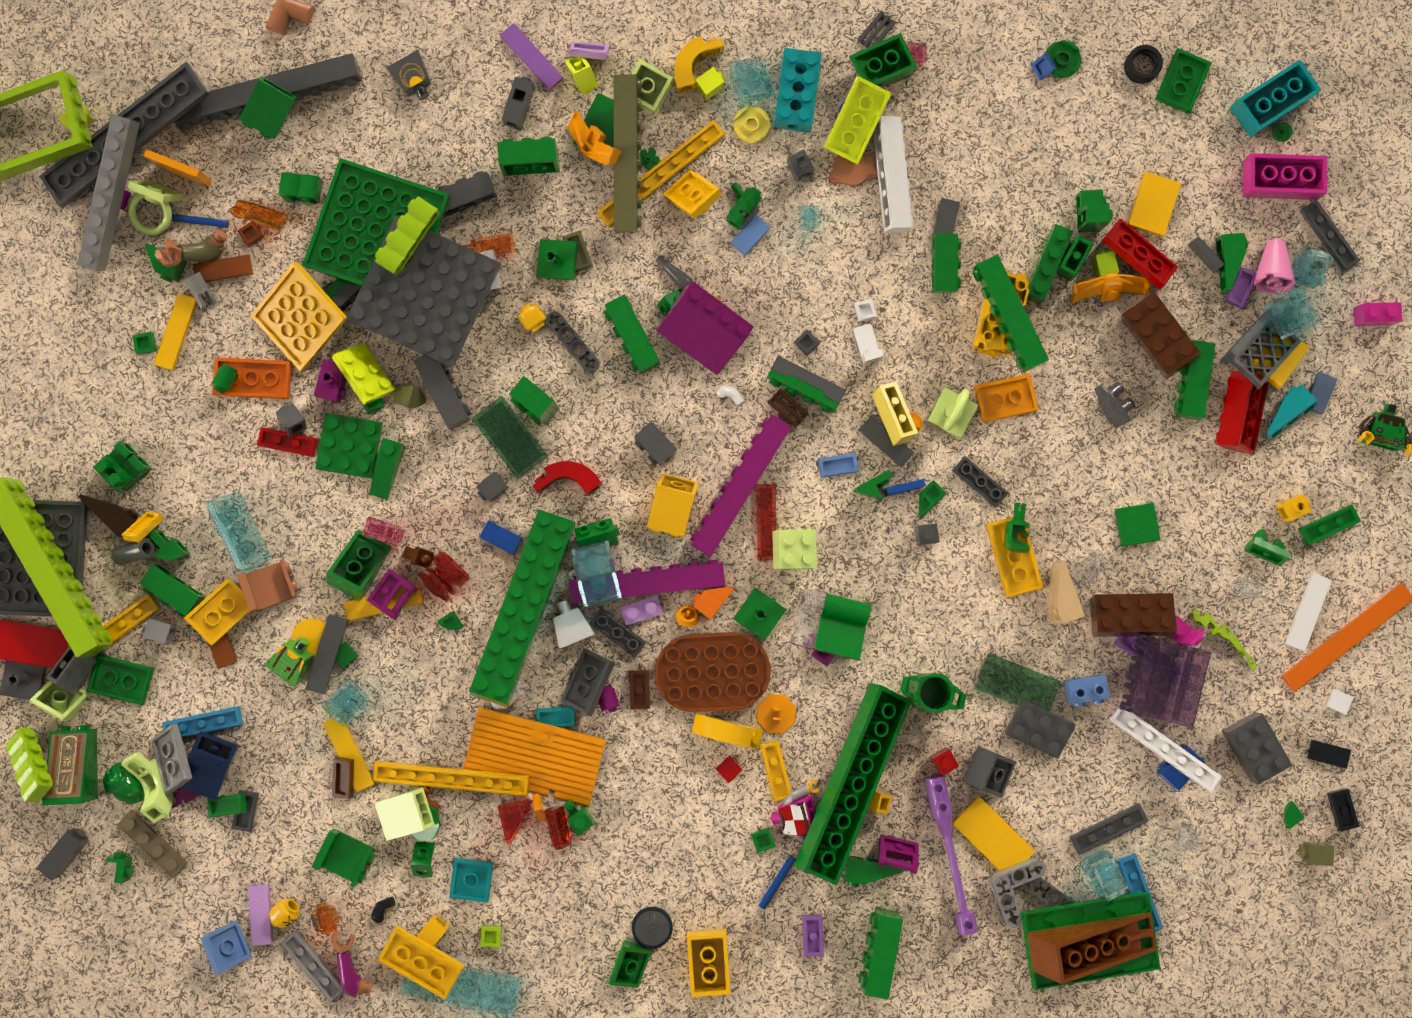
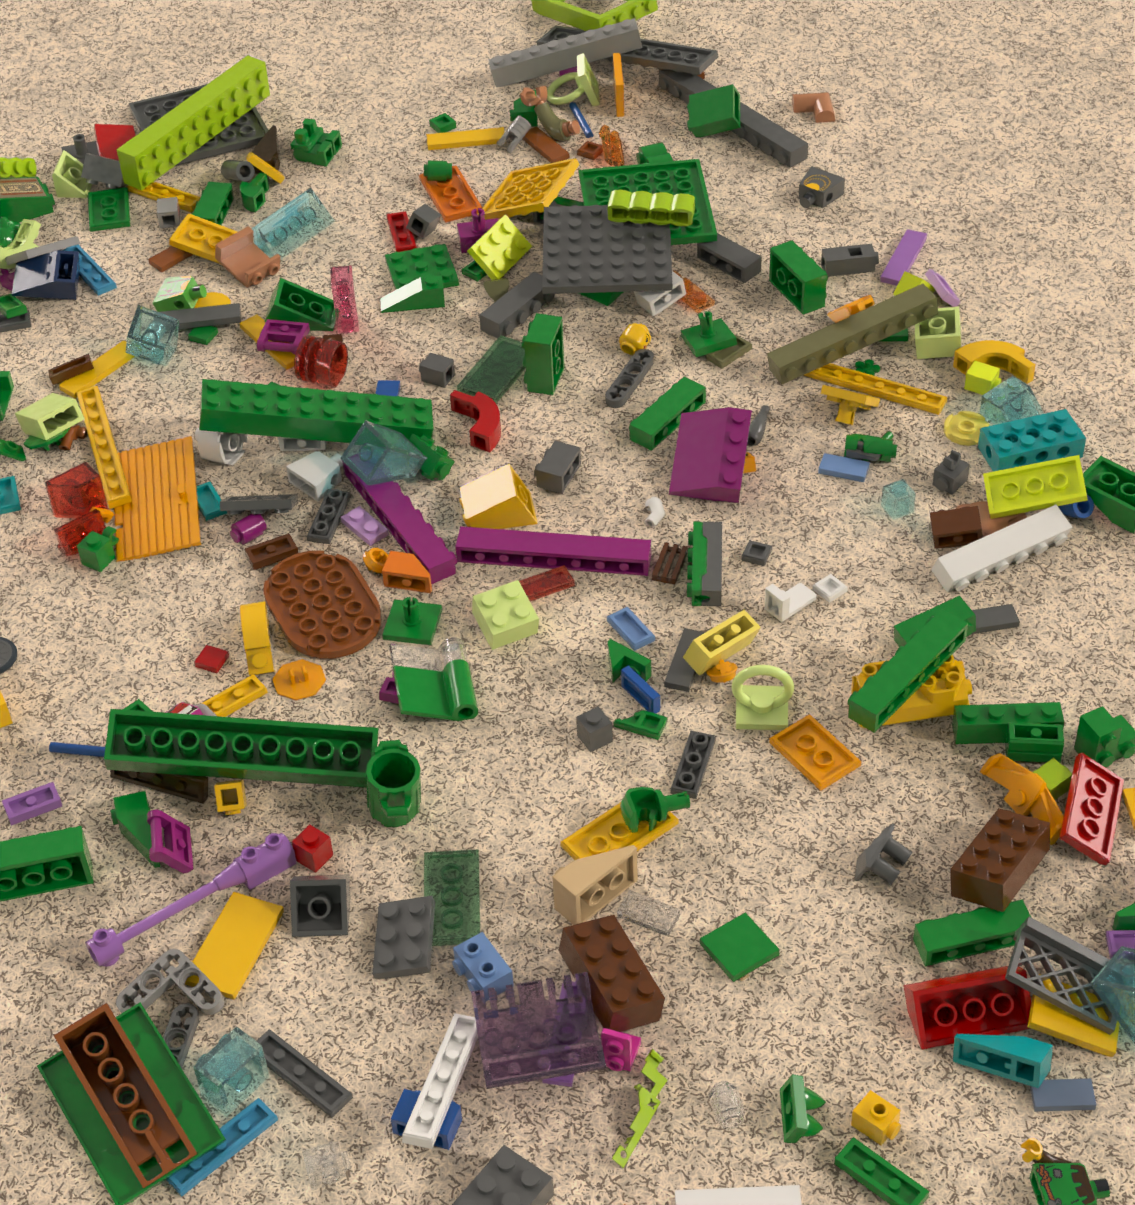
camera: 70 degrees right, 40 degrees down
(858, 194) = (956, 527): none -> reddish brown brick

